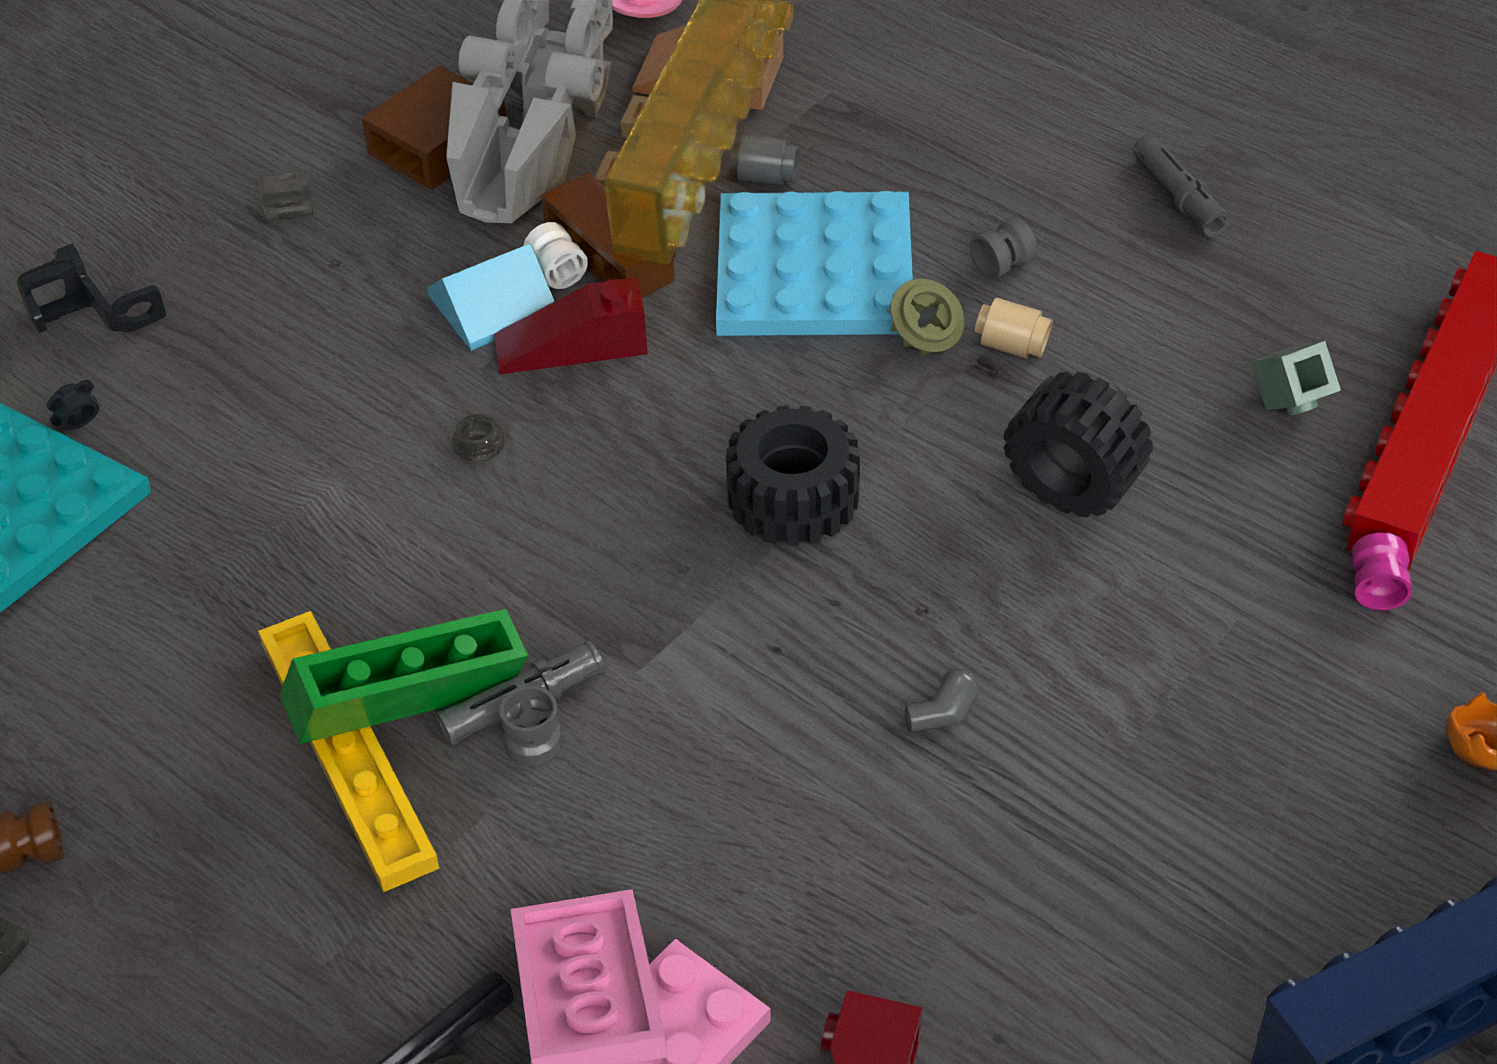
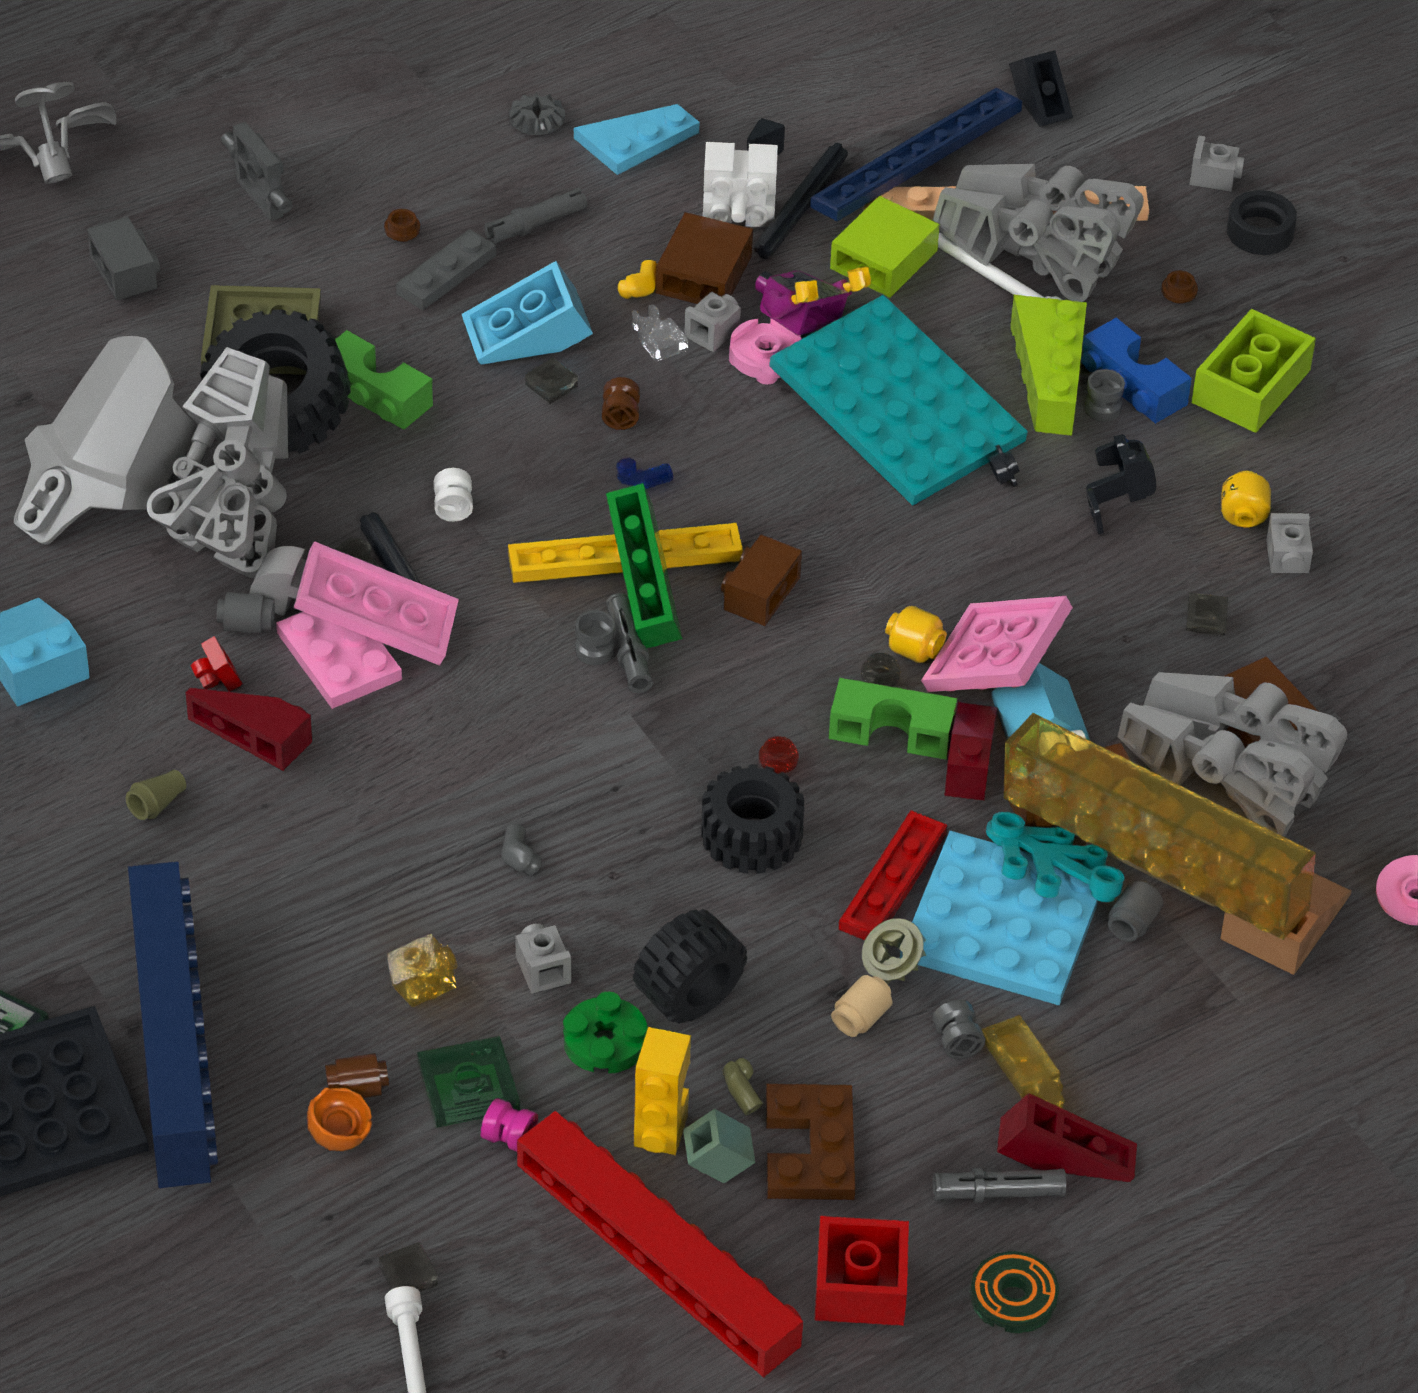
camera: 105 degrees right, 0 degrees up
(91, 191) = (1247, 498): none -> yellow head
(155, 154) = (1289, 543): none -> light grey brick
(176, 777) = (652, 477): none -> clear blue arm
(284, 990) = (453, 494): none -> white wheel
(358, 580) = (761, 579): none -> reddish brown brick
(412, 408) = (915, 634): none -> yellow head
(420, 320) = (997, 644): none -> bright pink plate
(558, 404) = (867, 706): none -> bright green arch
(660, 495) = (779, 754): none -> clear red plate
(705, 265) = (1010, 833): none -> teal plant
(801, 359) = (893, 874): none -> red tile
(1016, 194) = (1024, 1060): none -> clear yellow hinge
(1108, 151) = (1056, 1139): none -> dark red slope
(1112, 617) = (542, 949): none -> light grey brick
(1174, 331) = (830, 1166): none -> reddish brown plate
(1180, 402) = (736, 1077): none -> olive arm
(1187, 514) = (601, 1014): none -> green plate
(1215, 716) = (422, 970): none -> clear yellow brick
(1276, 142) = (1019, 1271): none -> clear green tile
(1294, 385) = (659, 1091): none -> yellow arch
(1330, 645) = (466, 1080): none -> clear green tile
(1374, 234) = (862, 1270): none -> red brick
(1413, 742) = (358, 1073): none -> reddish brown brick

